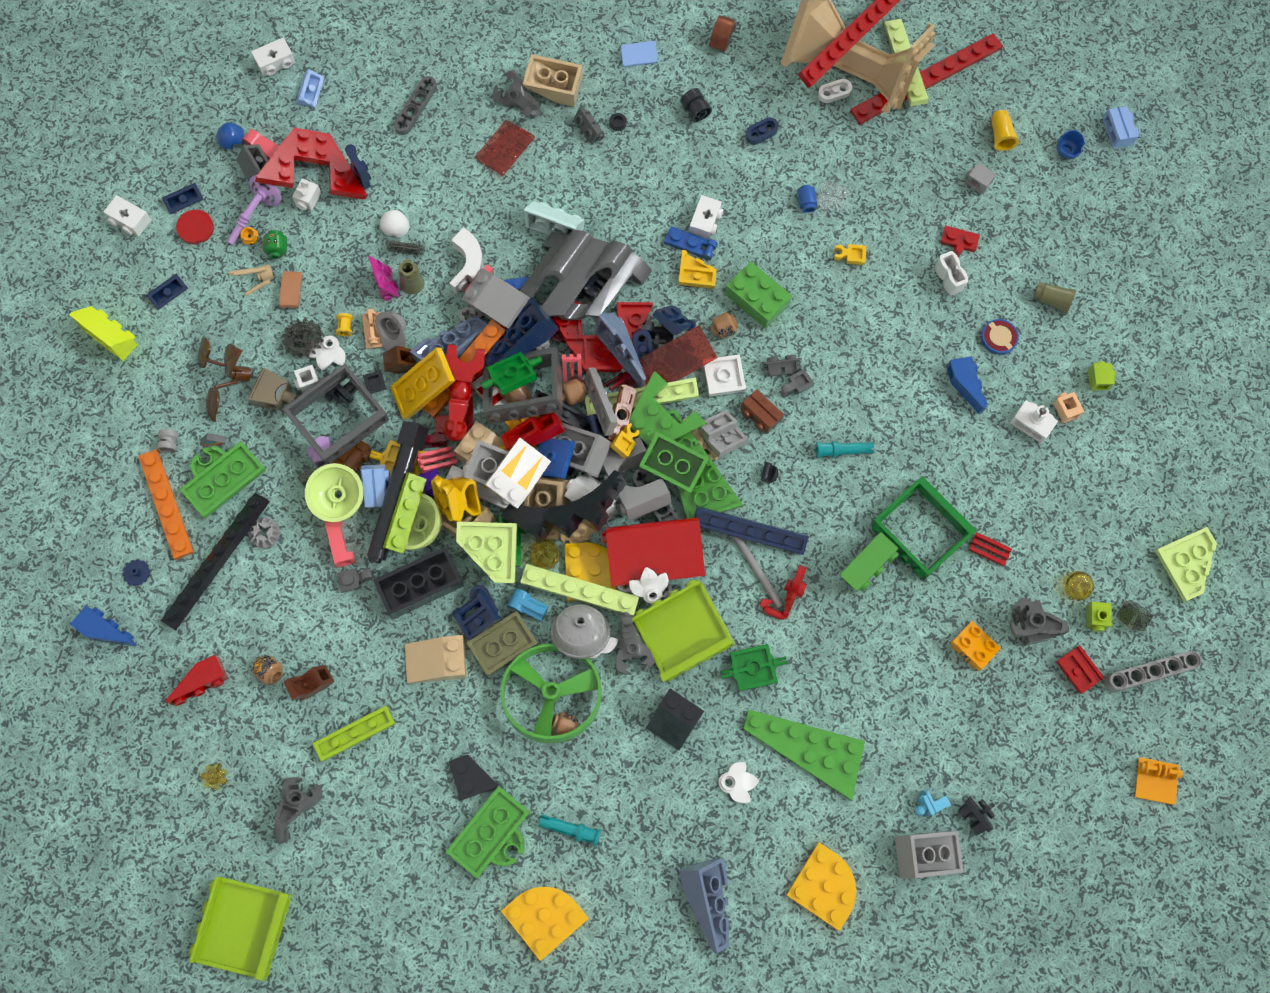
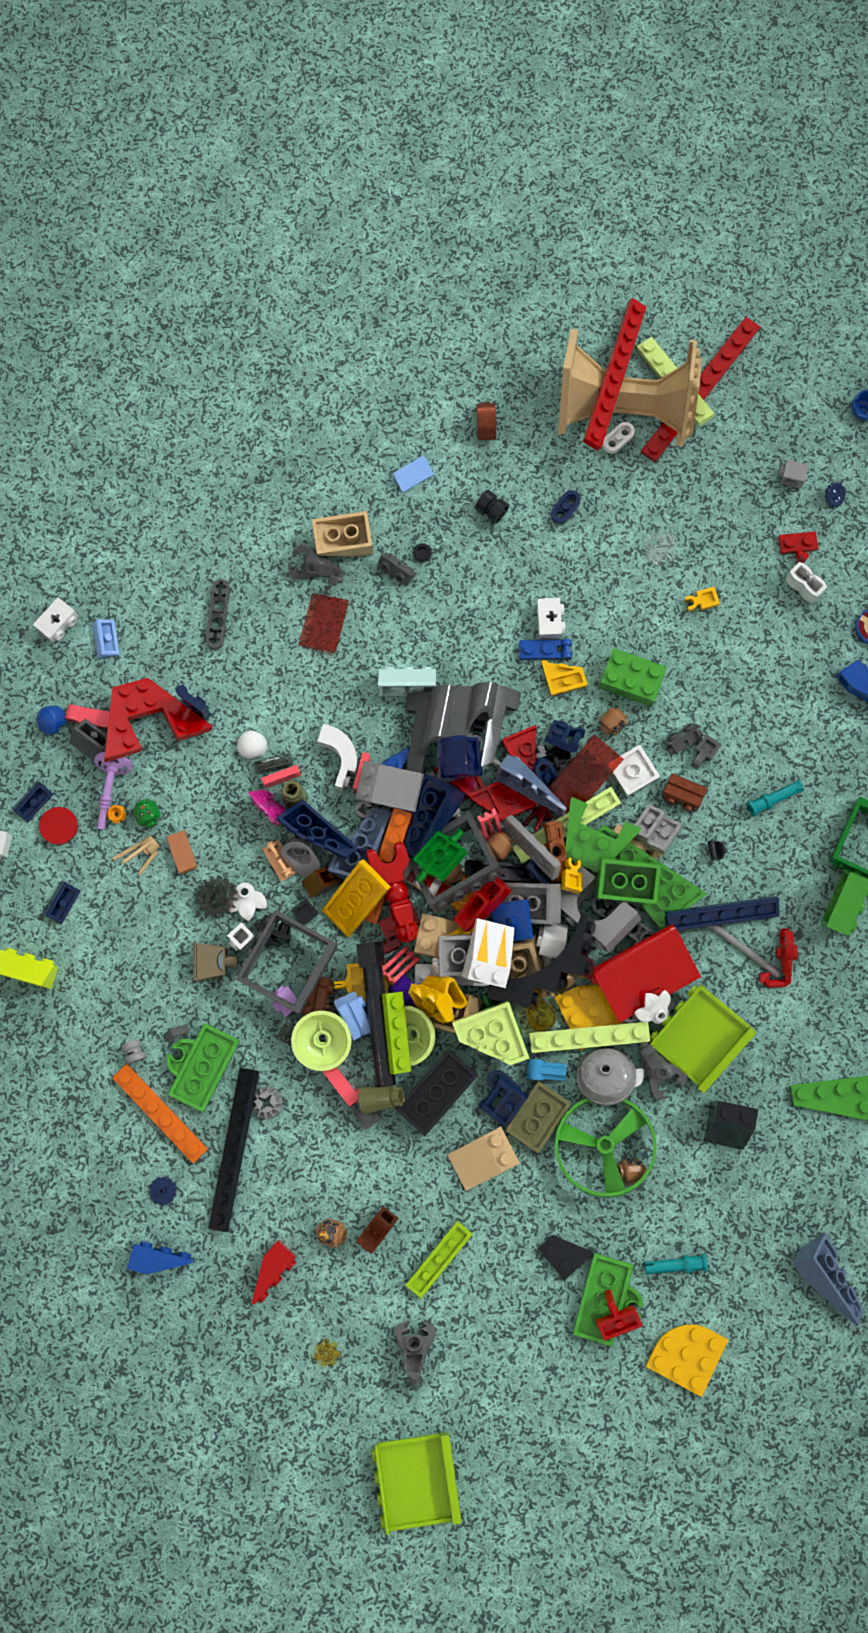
camera: 15 degrees left, 5 degrees up
(236, 373) = (169, 956): reddish brown plant -> none
(306, 195) = (154, 750): white brick -> none
(344, 324) = (250, 867): yellow bush -> none
(360, 564) = (380, 1098): none -> olive plant
(397, 258) = (281, 776): none -> coral tile
(412, 307) = (313, 827): none -> dark blue wedge
(491, 856) = (618, 1321): none -> red plate
(568, 295) = (459, 757): none -> clear blue brick
(741, 782) = (812, 1157): white plate -> none
(753, 667) = (779, 1044): green plate -> none
(807, 198) = (638, 560): blue brick -> none
(1003, 131) = (796, 416): yellow plant -> none
(1011, 210) = (835, 494): none -> dark blue piece

